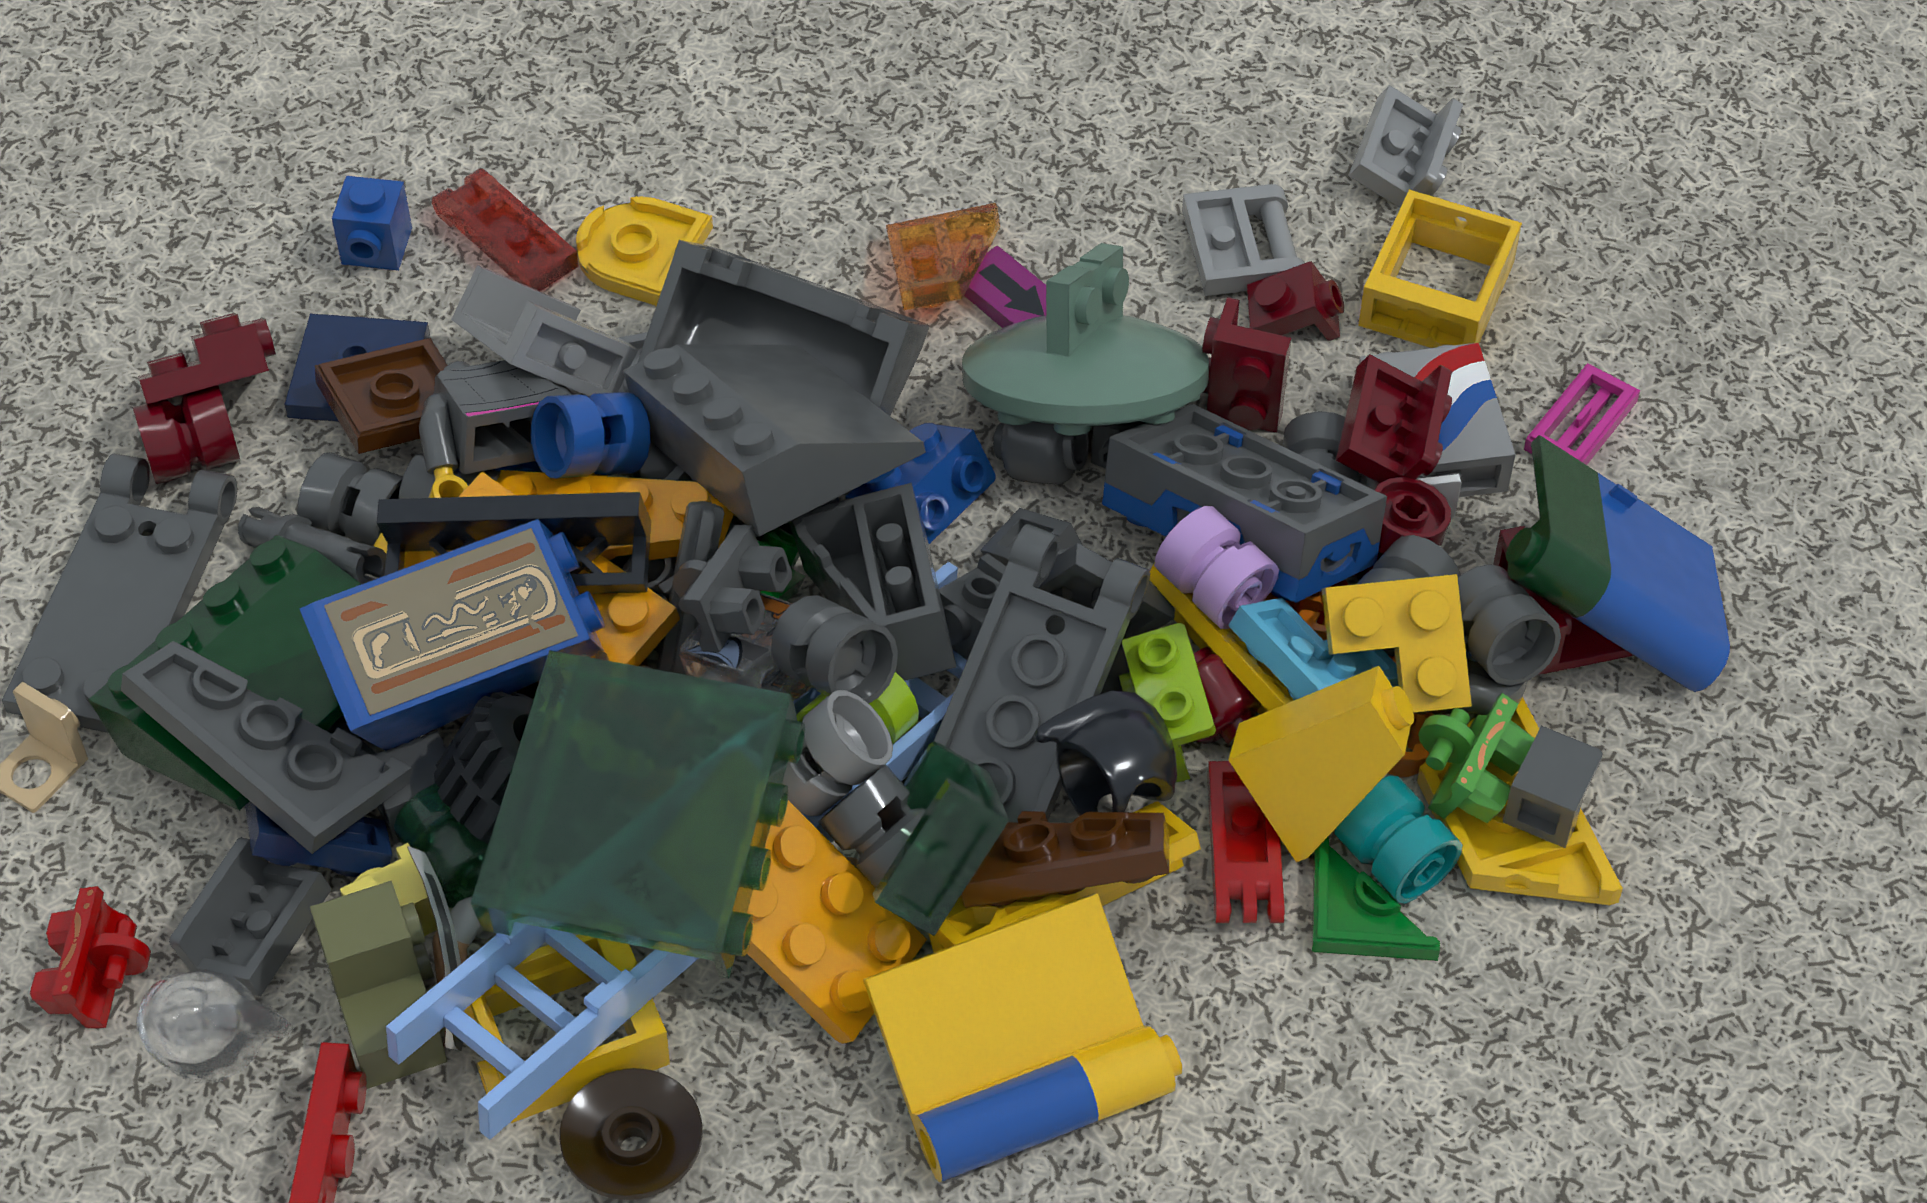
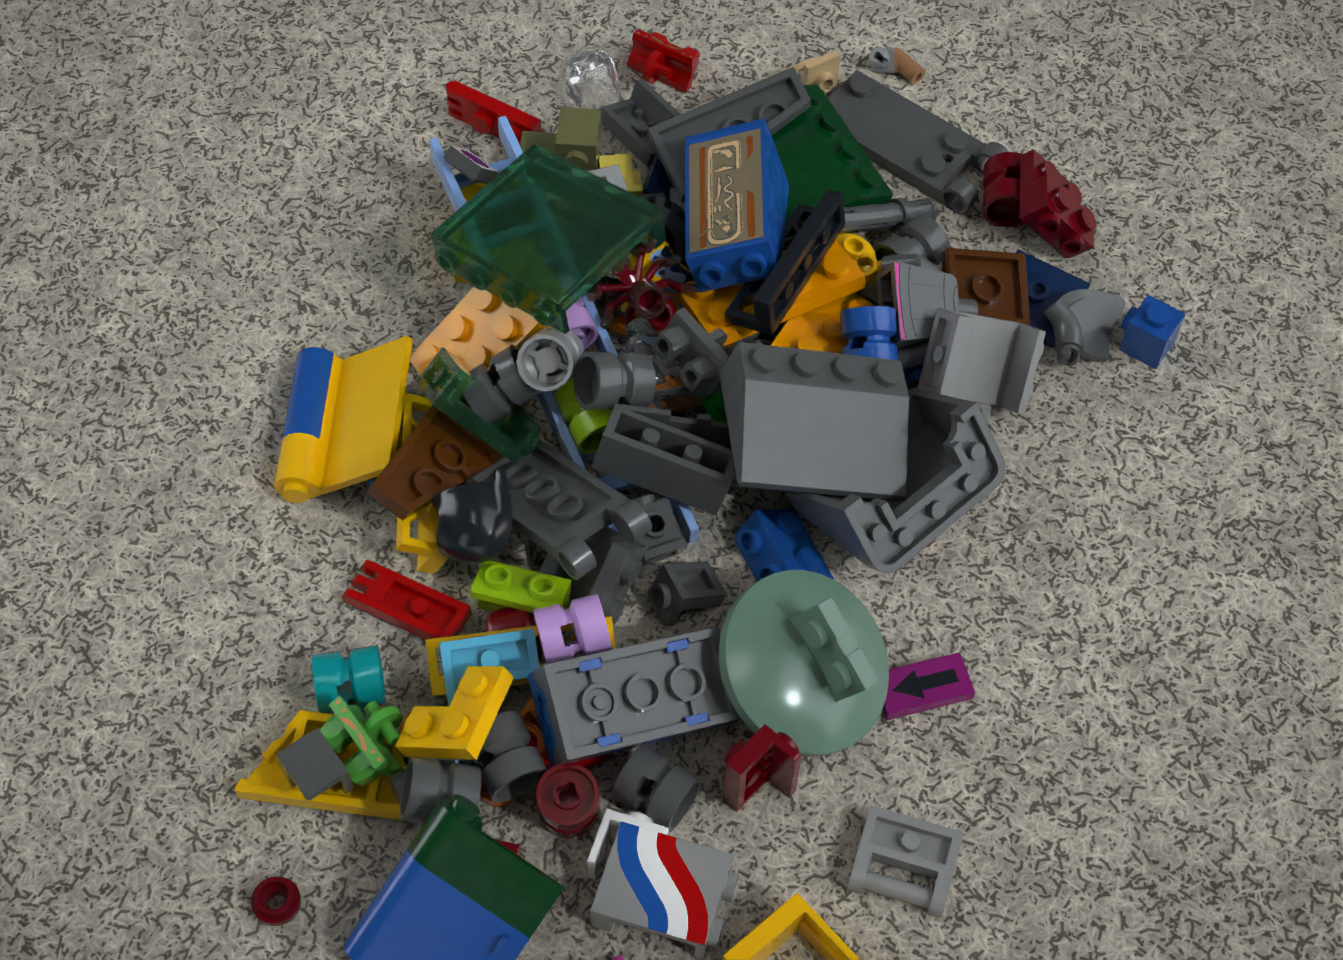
camera: 115 degrees right, 5 degrees up
(389, 301) = (1084, 324): none -> dark grey arm
(506, 230) = (1120, 408): clear red plate -> none
(509, 1033) = (470, 165): none -> dark grey tile
(627, 1106) = (404, 227): dark brown dish -> none
(634, 244) = (1076, 483): yellow tile -> none
(941, 253) = (976, 644): clear orange wing -> none
(1295, 301) = (822, 863): dark red bracket -> none
(1322, 755) = (406, 623): yellow slope -> none
(1359, 916) = (322, 635): green tile -> none
(1394, 421) = (646, 822): dark red bracket -> none
(1712, 774) = (273, 887): none -> dark red plate

